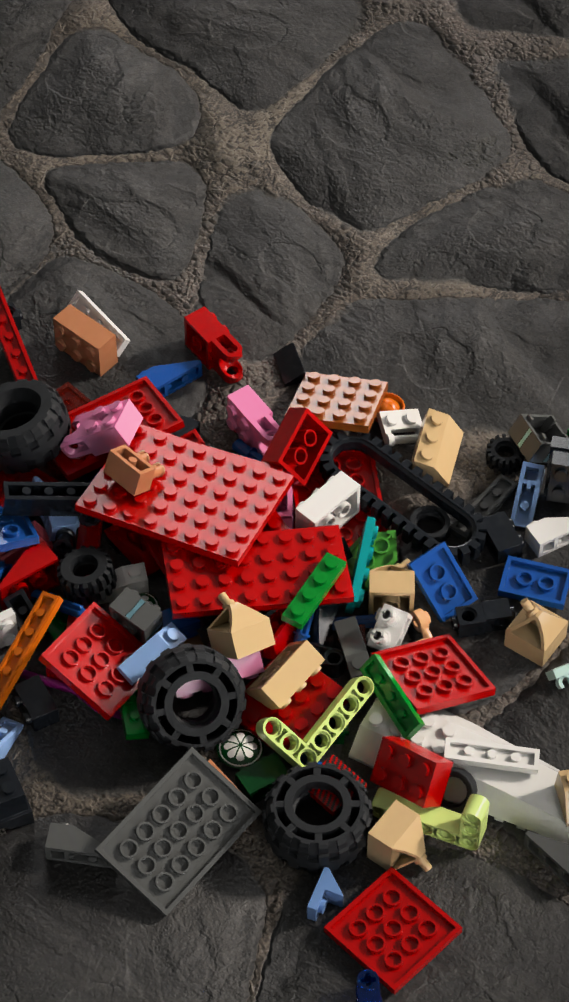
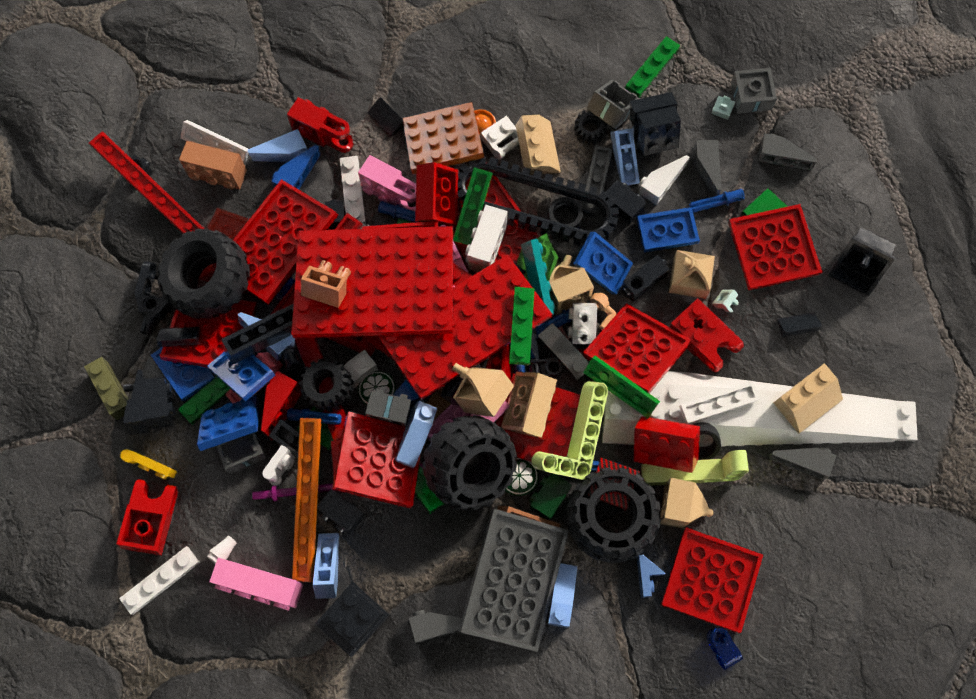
camera: 25 degrees left, 20 degrees up
(102, 429) = (277, 251): bright pink brick -> none
(159, 351) = (279, 149): none -> light blue slope
(216, 417) = (352, 188): none -> white plate
(221, 878) = (563, 596): none -> light blue slope
(337, 460) = (472, 205): none -> green plate
(518, 693) = (708, 336): none -> red brick

